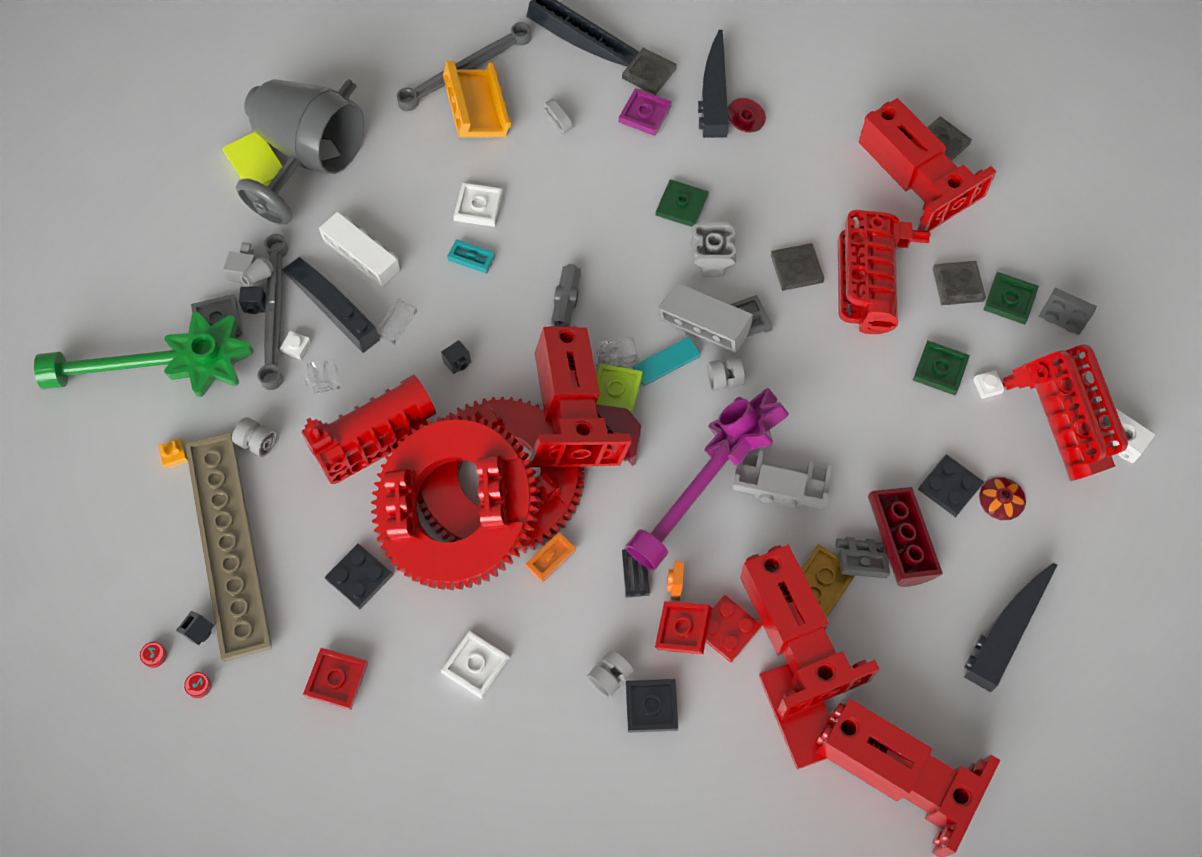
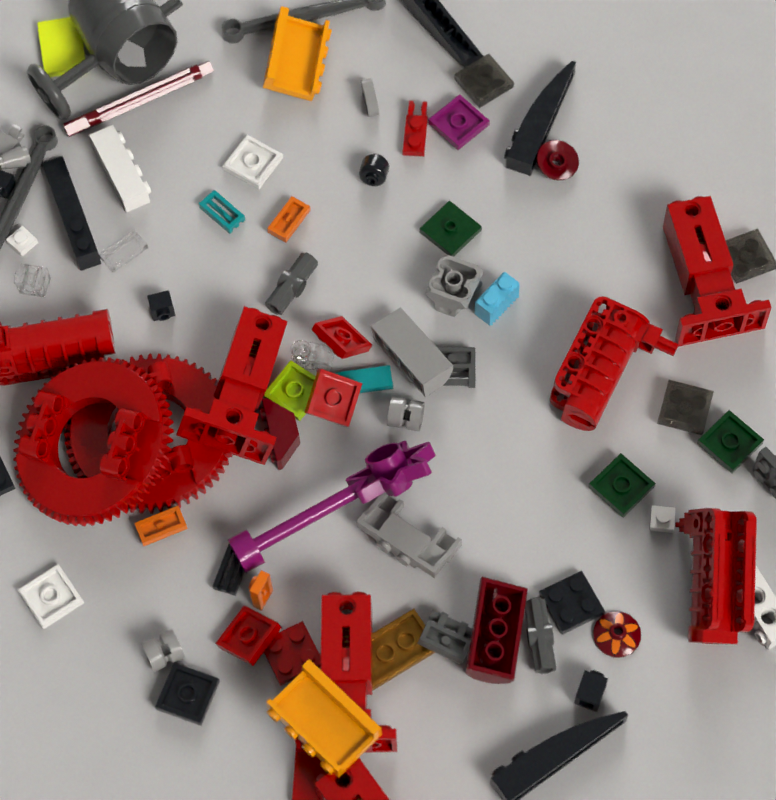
camera: 25 degrees right, 0 degrees up
(345, 185) = (137, 98): none -> piece
(536, 242) = (288, 219): none -> orange plate
(592, 173) = (374, 170): none -> black head
(610, 131) = (415, 131): none -> red hinge
(636, 327) = (341, 337): none -> red plate
(656, 382) = (333, 397): none -> red plate
(754, 247) = (497, 298): none -> medium azure brick
(797, 266) = (532, 333): clear smoke plate -> none
(808, 677) = (324, 720): none -> light orange panel
(942, 526) = (540, 636): none -> dark grey piece
(1010, 556) = (591, 690): none -> black brick

